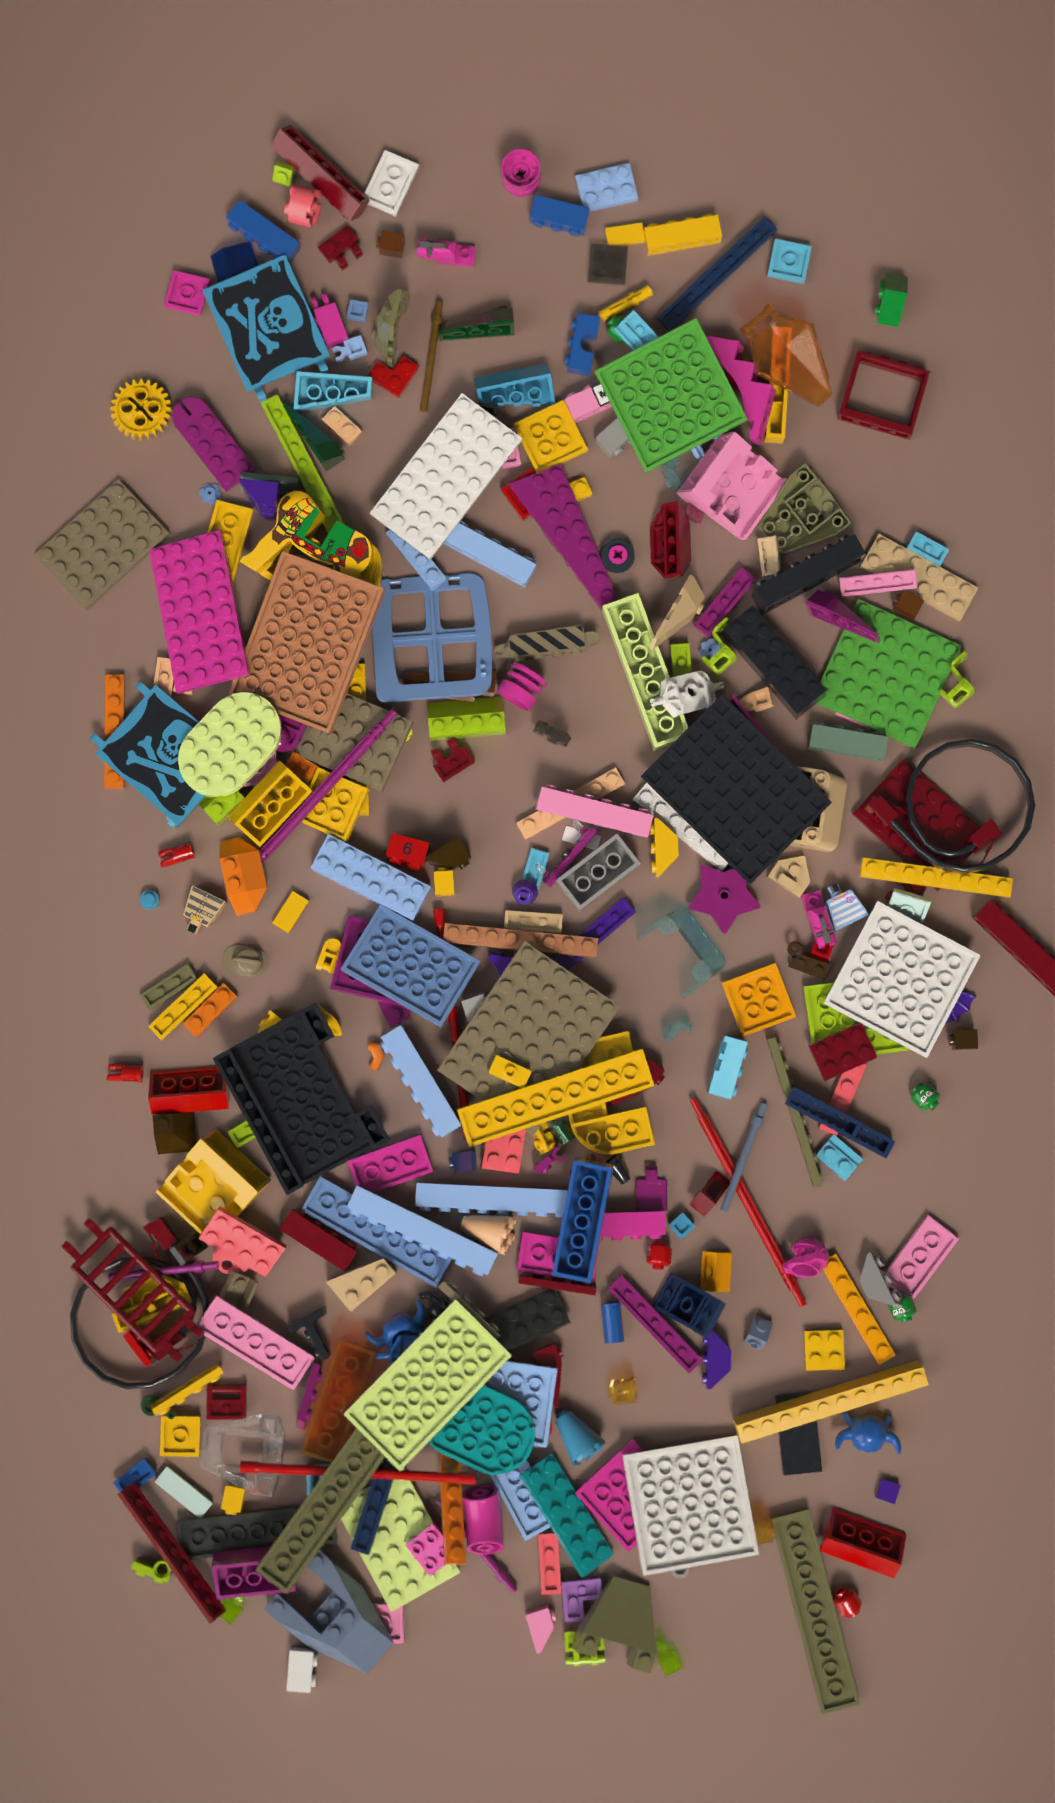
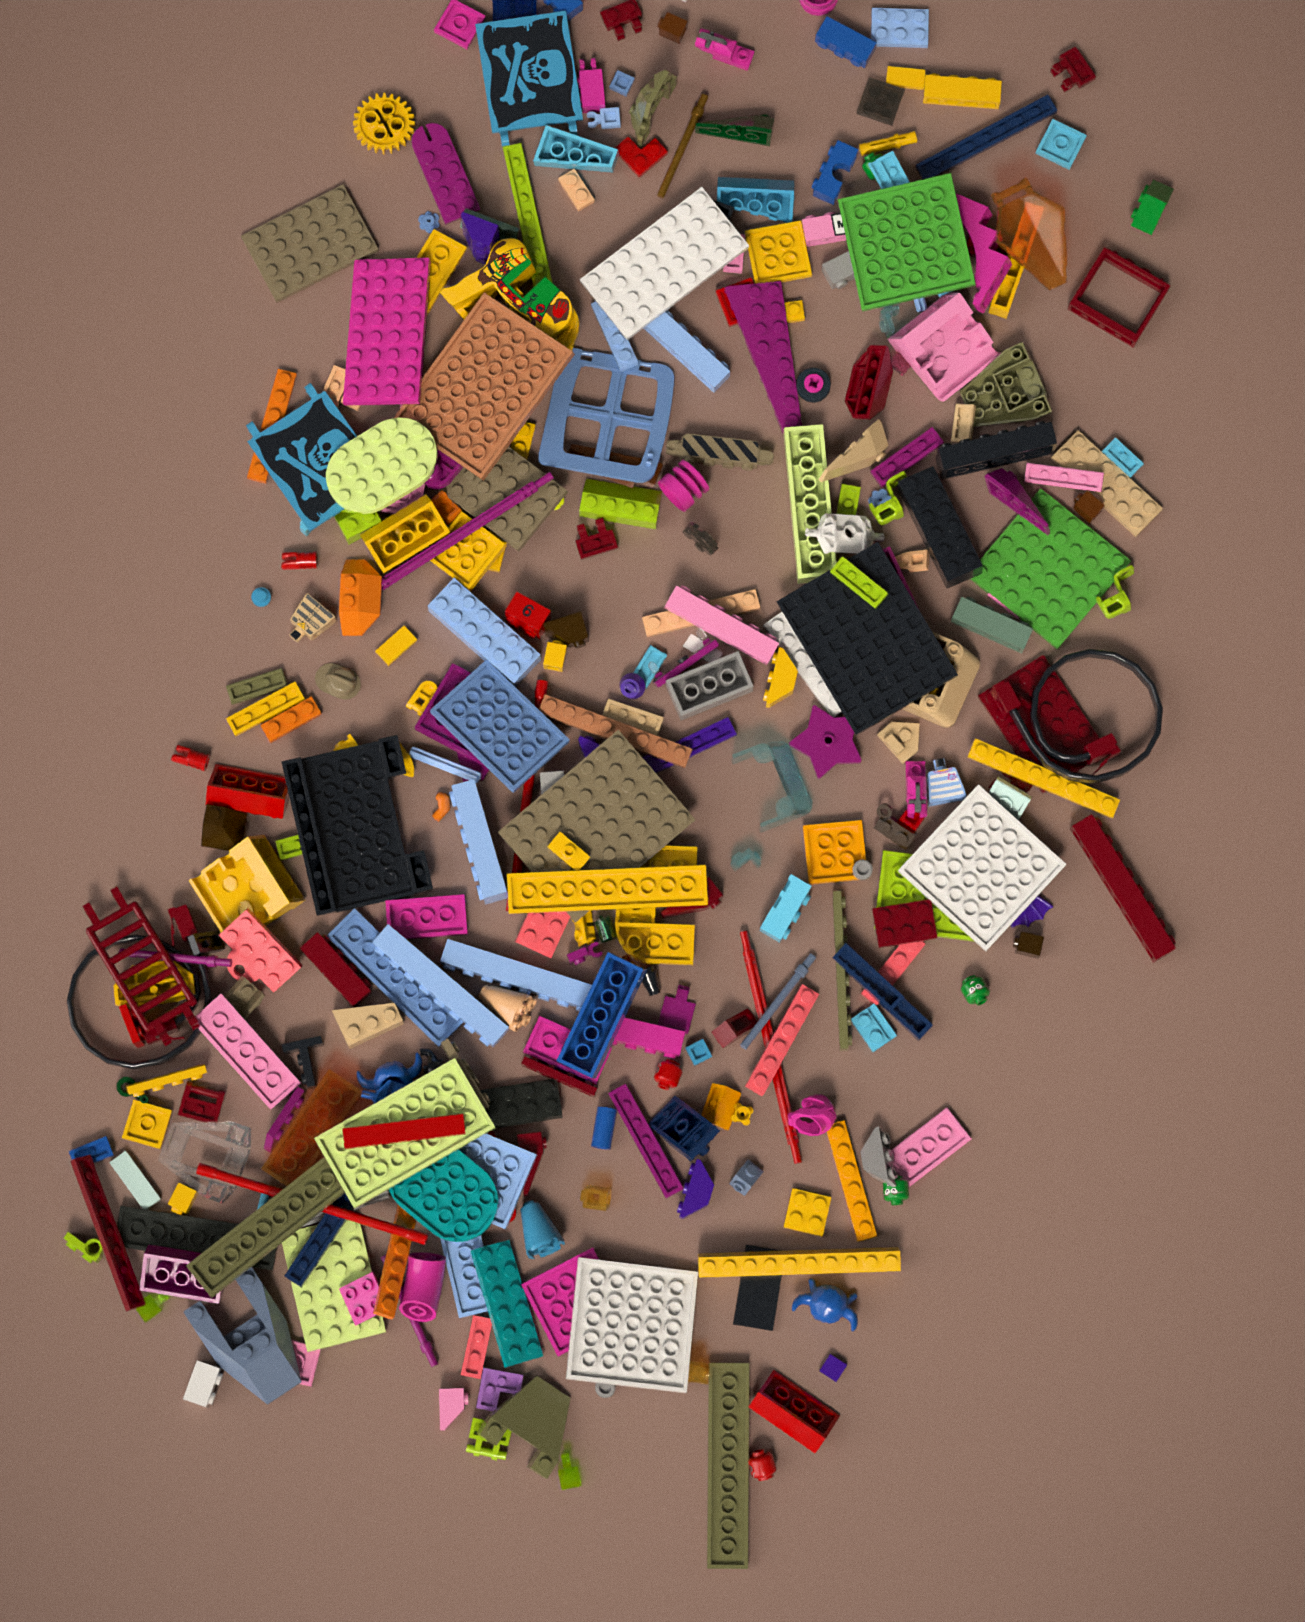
camera: 15 degrees right, 5 degrees down
(319, 442) = (551, 203): dark green wedge -> none
(368, 1015) = (444, 764): none -> light blue axle
(426, 1385) = (403, 1131): none -> red tile
(463, 1161) = (500, 930): dark blue slope -> none
(715, 738) = (859, 582): none -> lime plate
(733, 1273) = (745, 1120): none -> yellow plate
(757, 1194) = (782, 1040): none -> coral plate
(784, 183) = (1076, 66): none -> dark red plate
(789, 1010) = (862, 869): none -> light grey tile

